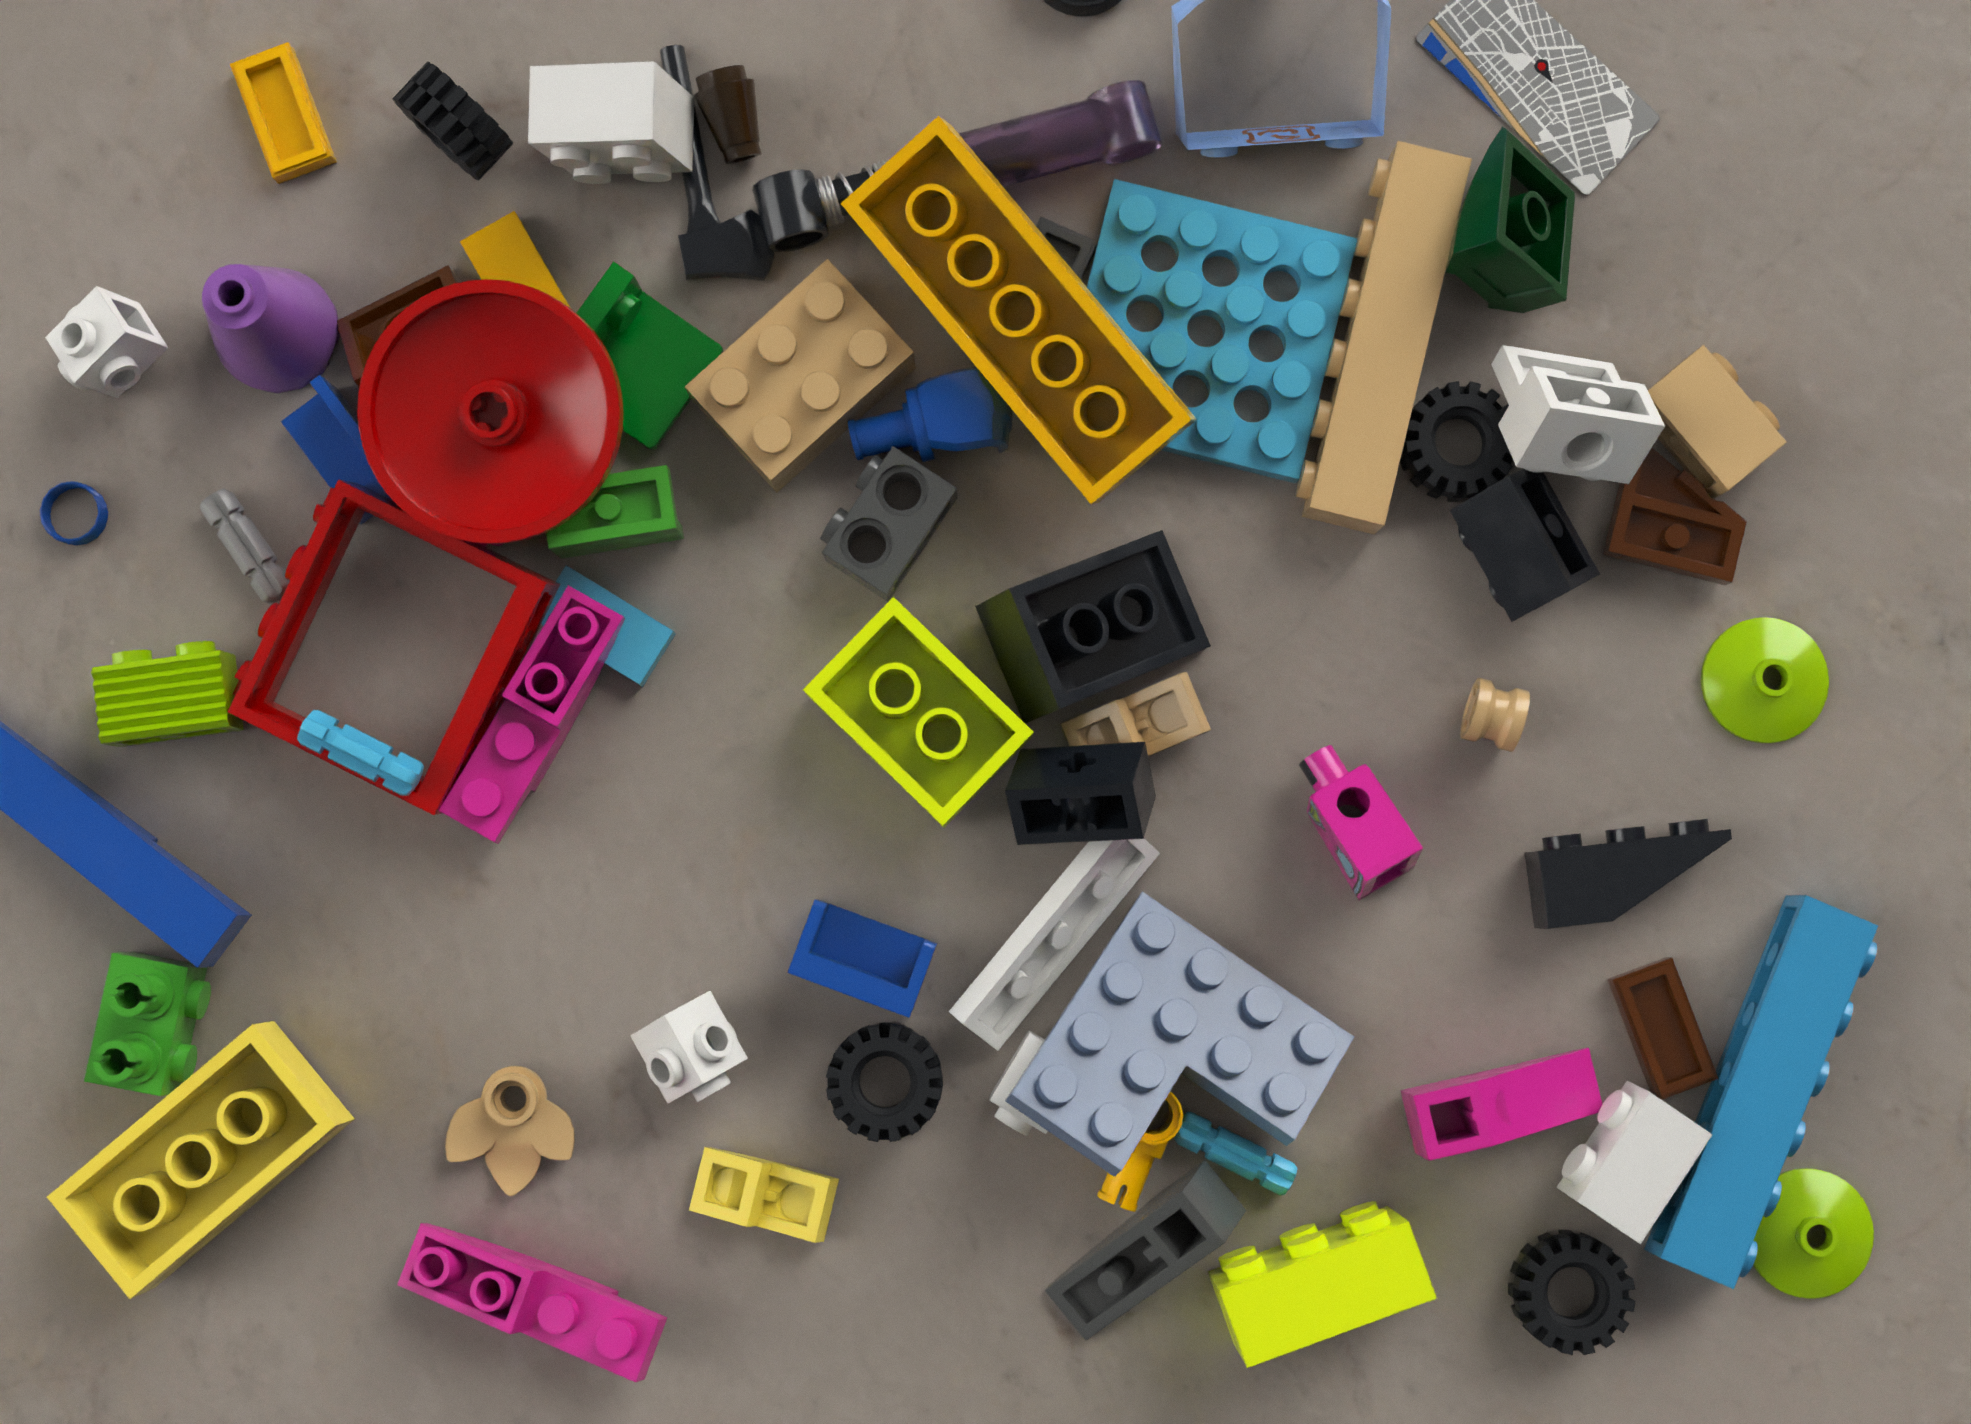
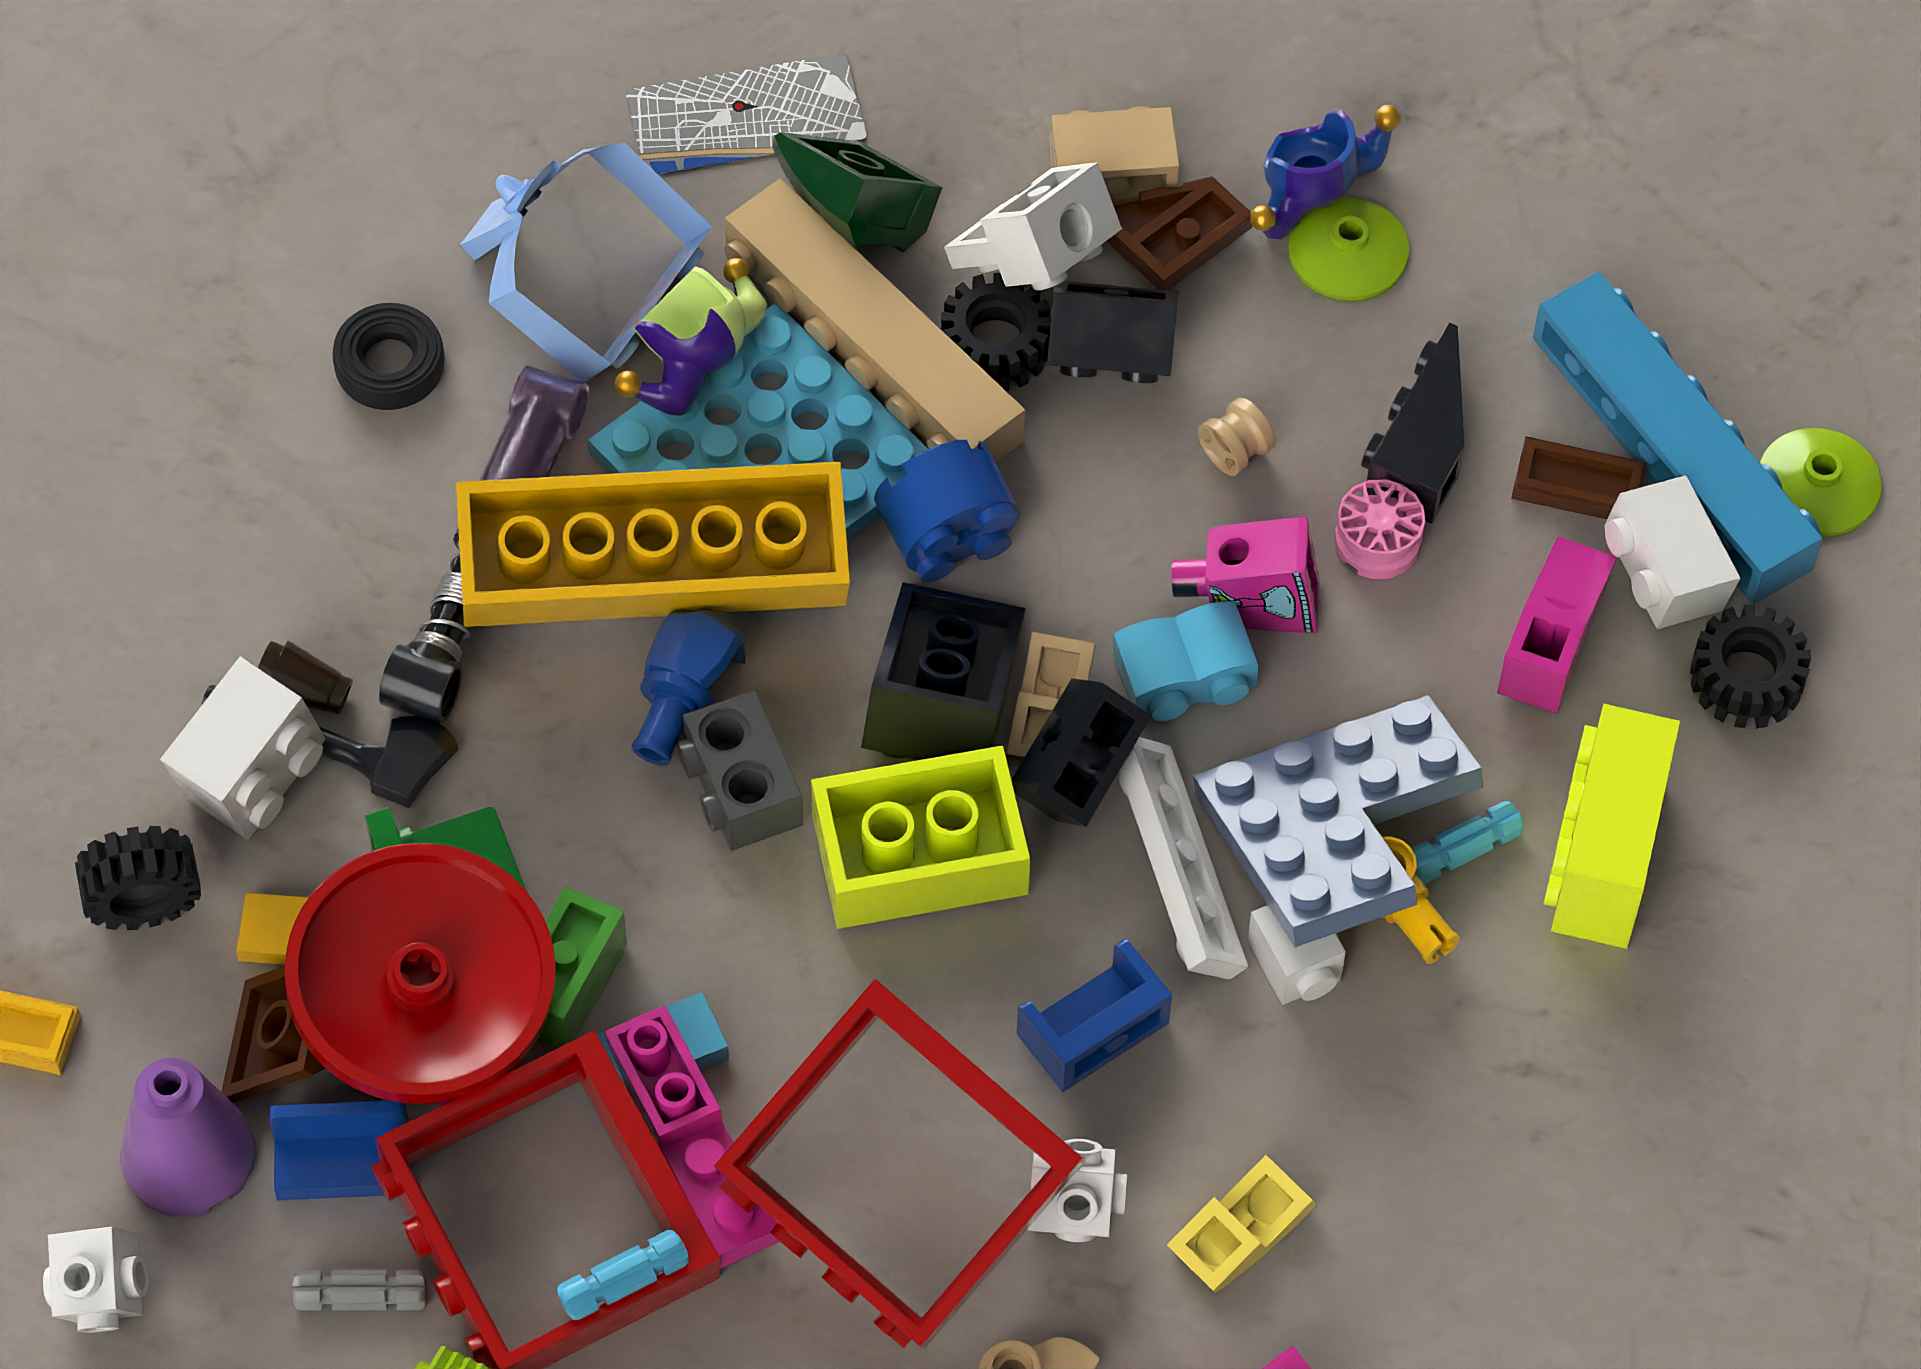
camera: 55 degrees left, 25 degrees down
(677, 922) = (802, 1234): none -> red window
(801, 375) = (567, 757): tan brick -> none
(873, 1120) = (1206, 1100): black tyre -> none
(1148, 1250) = (1500, 954): dark grey slope -> none
(1243, 526) = (948, 508): none -> blue brick
(1244, 817) = (1186, 660): none -> medium azure brick
(1260, 199) = (694, 334): none -> piece
(1489, 893) = (1379, 531): none -> bright pink wheel
(1819, 605) = (1318, 166): none -> piece

